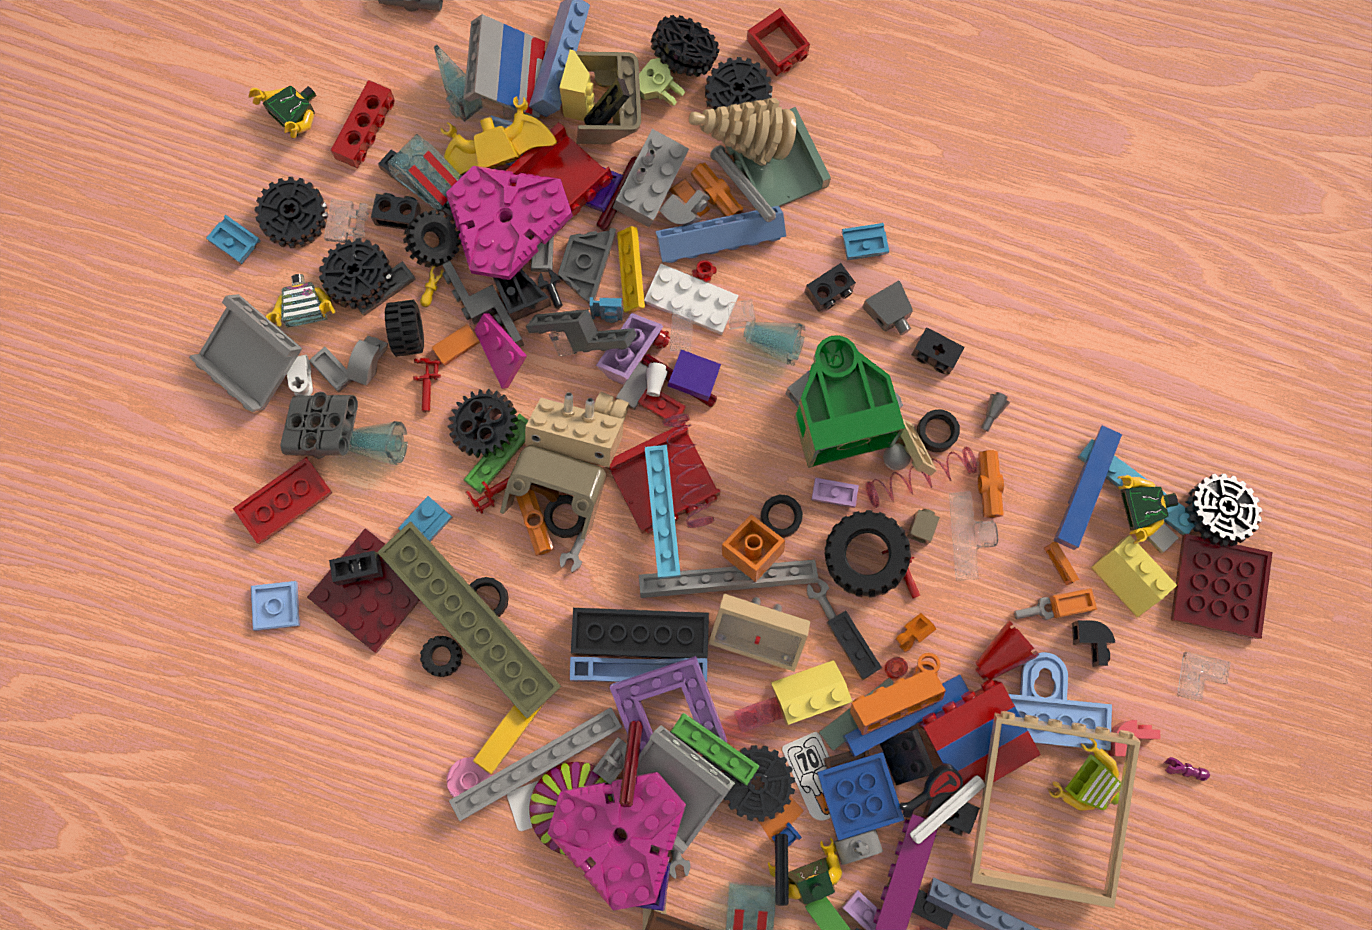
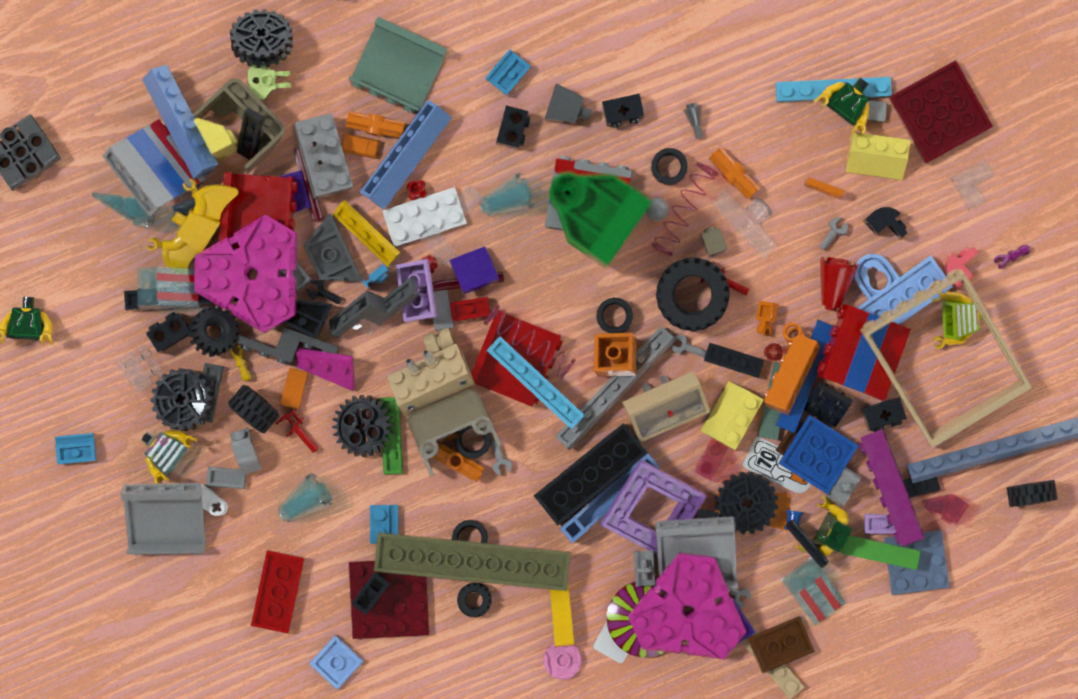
camera: 40 degrees left, 10 degrees up
(306, 208) = (86, 385): black piece -> none
(319, 425) = (274, 526): dark grey connector -> none
(371, 95) = (73, 264): red brick -> none
(489, 492) = (409, 468): red piece -> none
(535, 764) = (596, 613): light grey plate -> none
(630, 764) = (658, 561): dark red axle -> none
(655, 376) = (451, 296): white cone -> none
(685, 213) = (366, 162): light grey brick -> none
(714, 749) = (702, 506): bright green tile -> none
(737, 83) = (319, 24): black piece -> none
(743, 183) = (391, 106): light grey axle -> none
(754, 128) = (366, 63): tan plant -> none
(835, 492) = (636, 269): lavender plate -> none
(916, 449) = (663, 193): tan plate -> none
(941, 781) = (861, 401): black piece -> none
(947, 809) = (879, 416): white axle -> none
(1073, 603) = (853, 208): orange tile -> none
(1087, 488) = (800, 121): blue slope -> none
(1223, 510) = (907, 47): piece -> none

